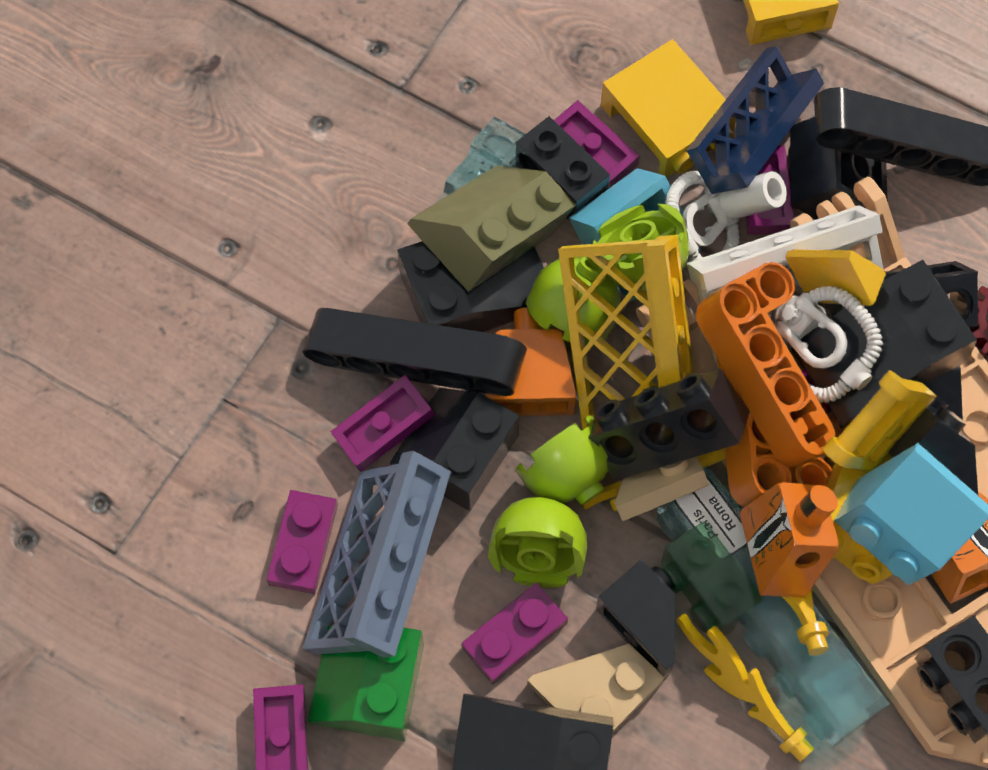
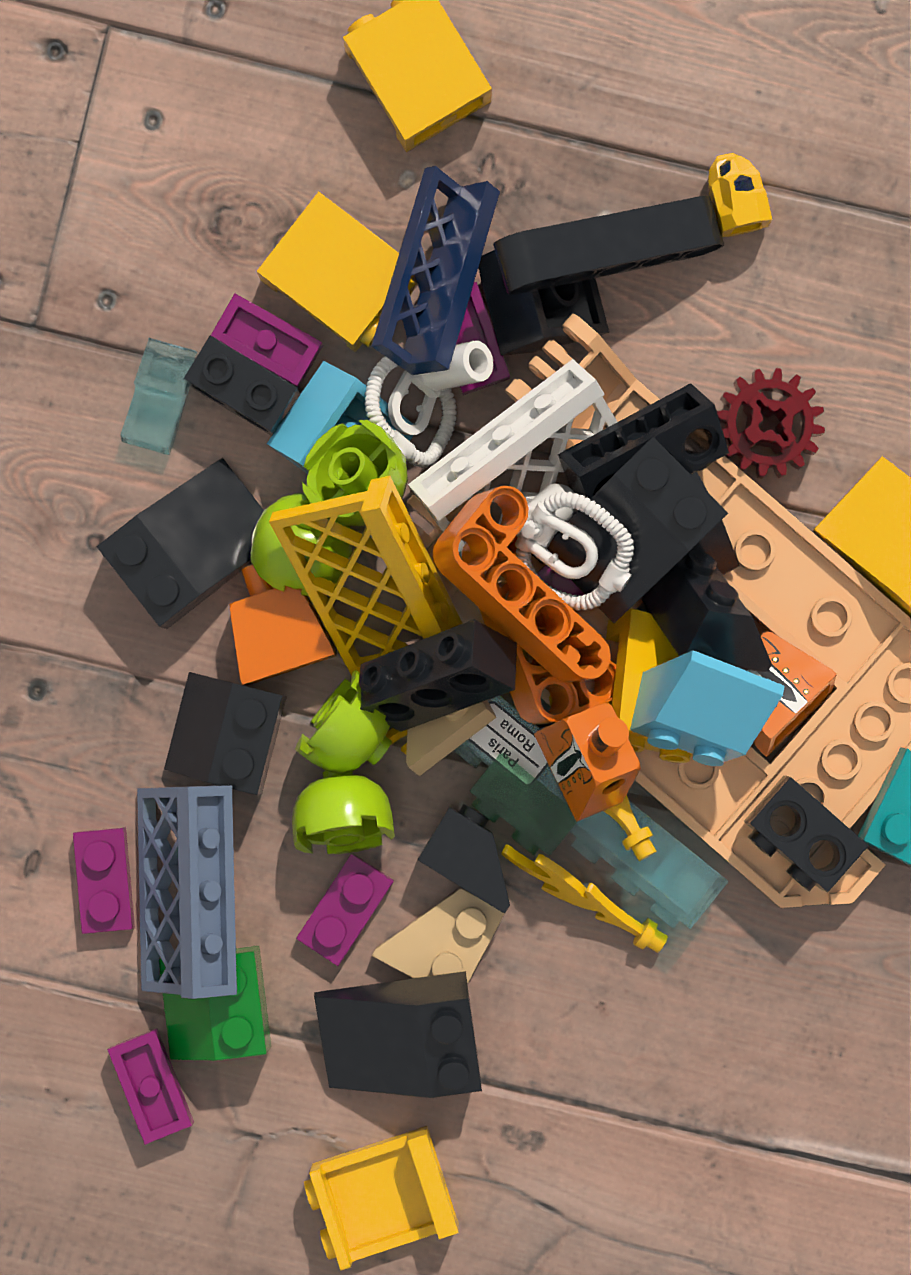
camera: 15 degrees left, 20 degrees up
(382, 423) = (143, 734): magenta plate -> none
(415, 349) = (151, 654): black beam -> none
(492, 221) = (184, 480): olive slope -> none
(839, 269) = (569, 474): yellow slope -> none
(880, 423) = (658, 614): yellow plate -> none

